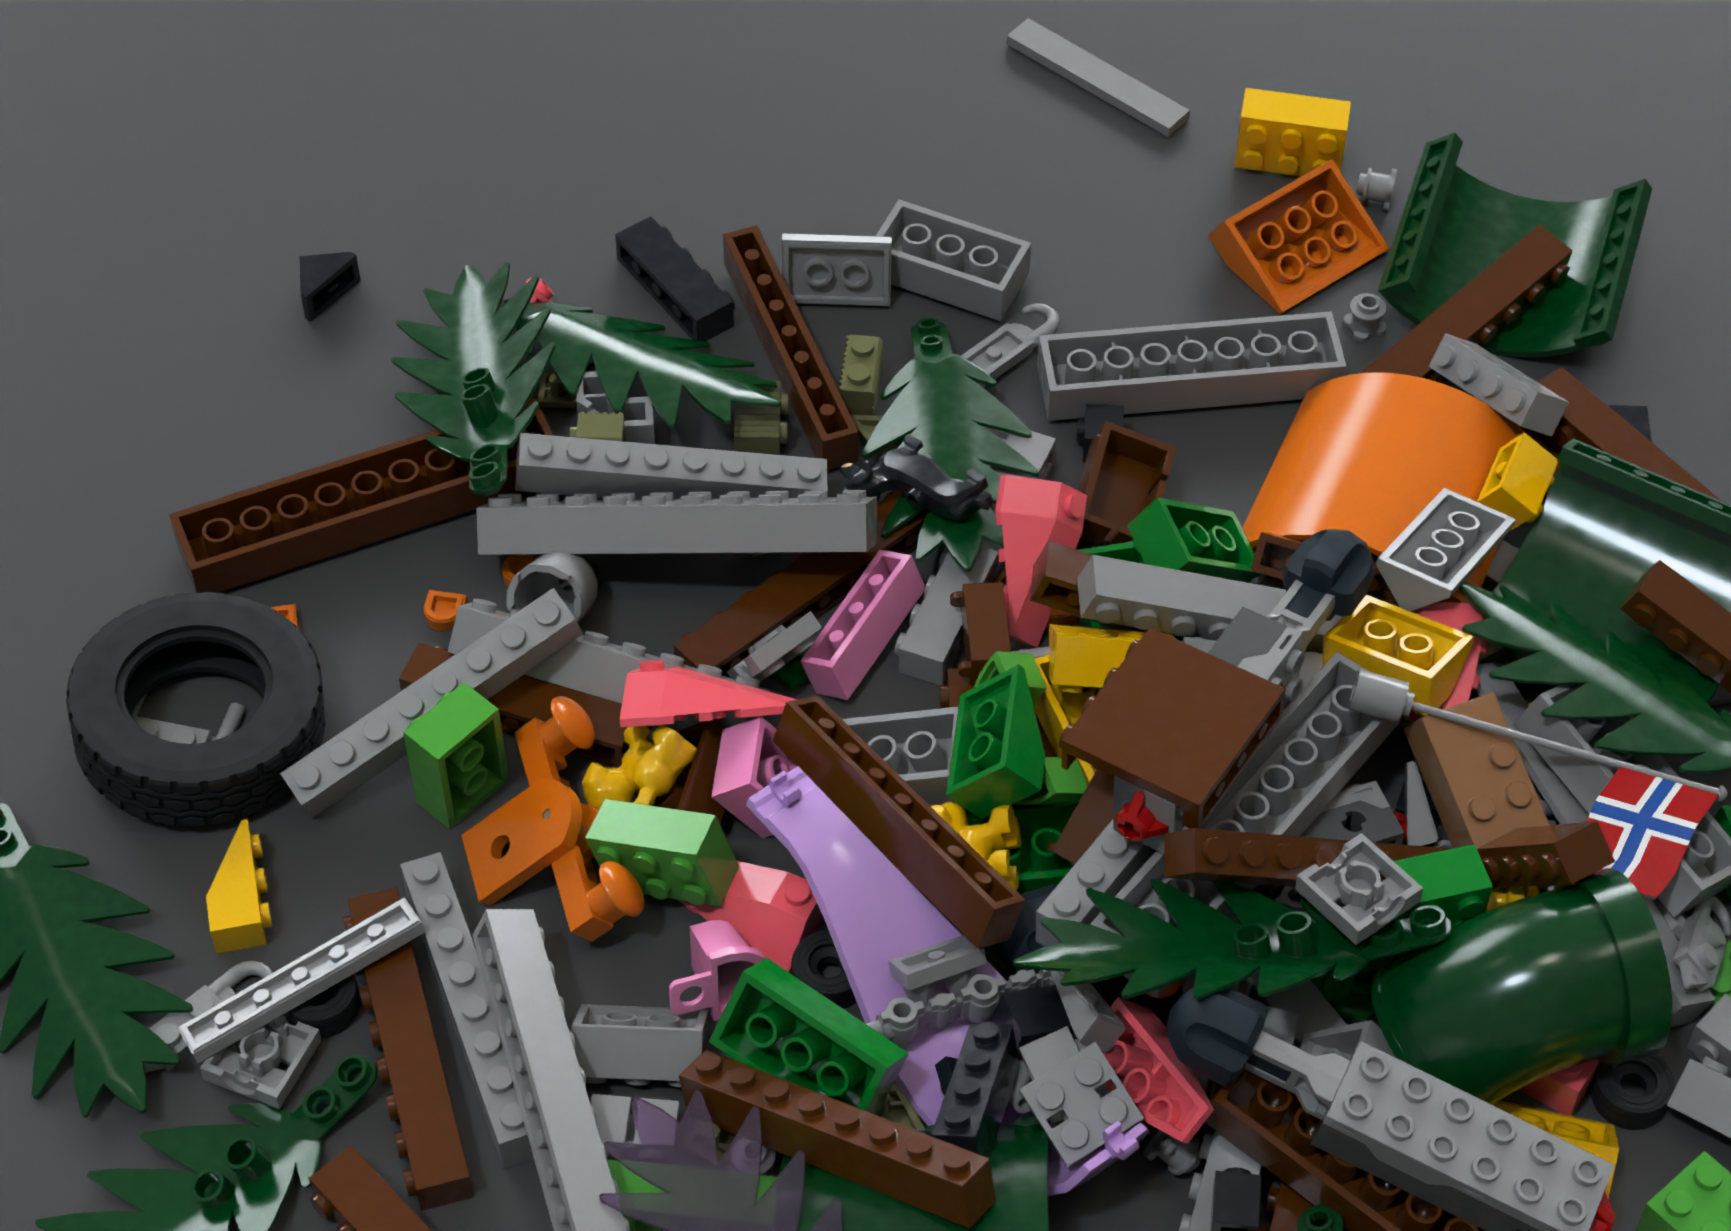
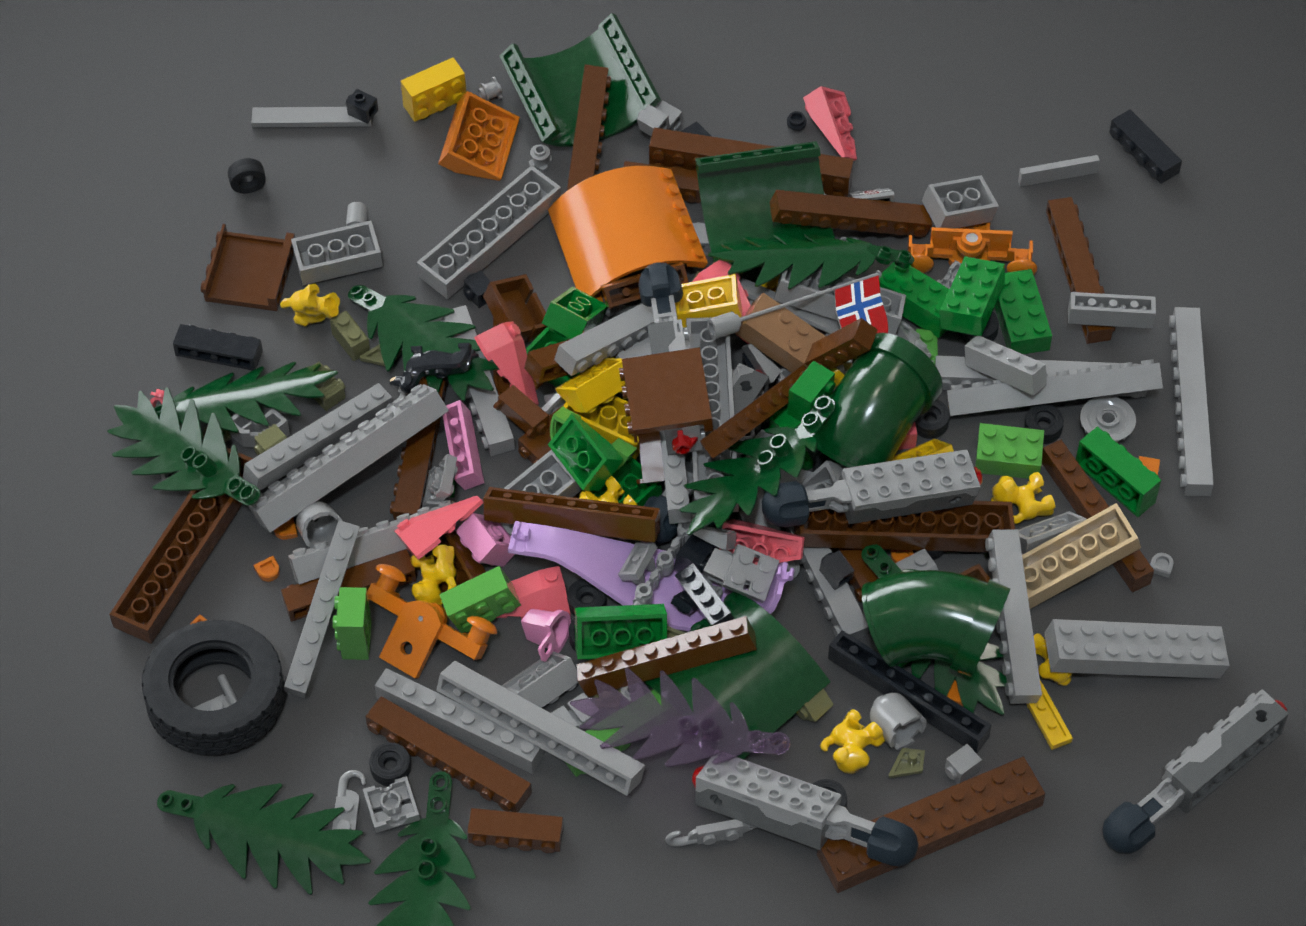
camera: 40 degrees left, 5 degrees up
(234, 897) = (315, 754): yellow slope -> none
(301, 980) = (382, 761): light grey tile -> none
(325, 280) = (50, 459): black slope -> none
(790, 347) = (305, 342): reddish brown brick -> none
(811, 193) = (248, 270): none -> reddish brown panel
(837, 269) = (286, 286): light grey tile -> none
(839, 305) = (310, 307): none -> yellow animal
(937, 79) = (246, 175): none -> black tyre
(1011, 343) = (399, 272): light grey plate -> none
(1031, 227) = (356, 213): none -> light grey brick
(1171, 97) = (362, 106): none -> black brick
(1357, 883) = (789, 405): light grey brick -> none
(1441, 549) = (688, 244): light grey slope -> none
(1498, 384) = (635, 153): light grey brick -> none
(1519, 479) = (683, 192): yellow brick -> none
(1600, 371) = (660, 116): none -> light grey brick

